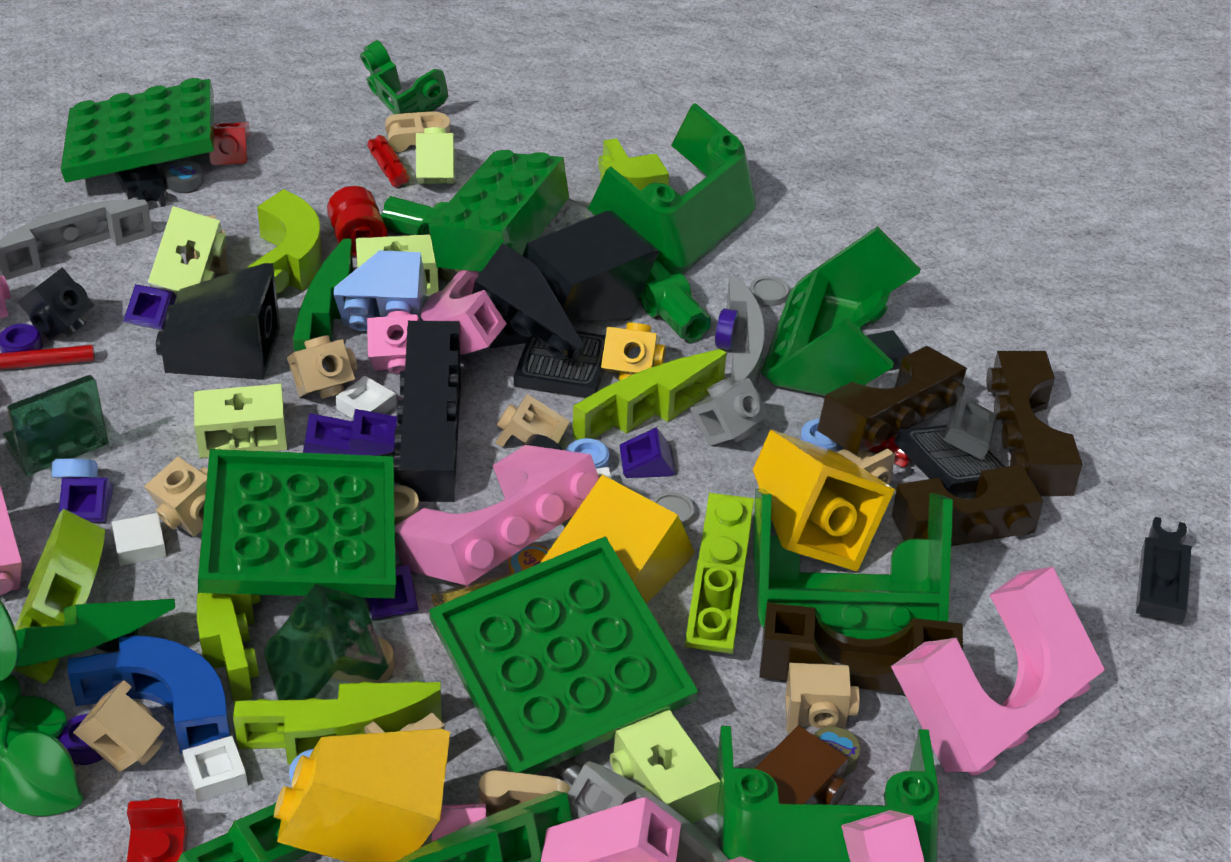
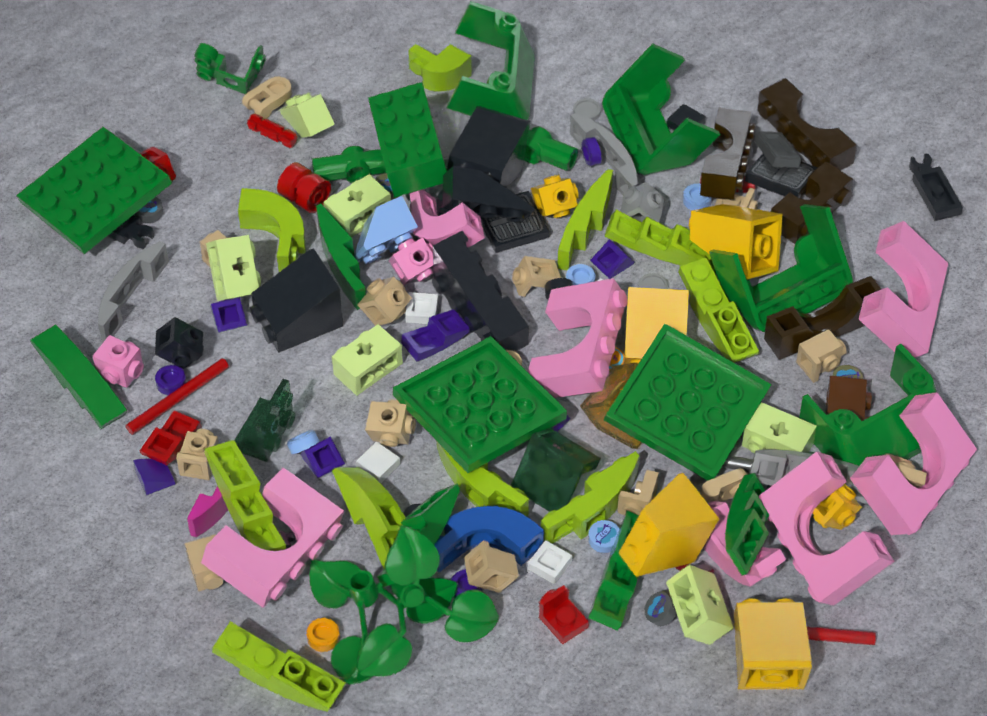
camera: 30 degrees left, 10 degrees up
(709, 449) = (655, 239): none -> lime slope

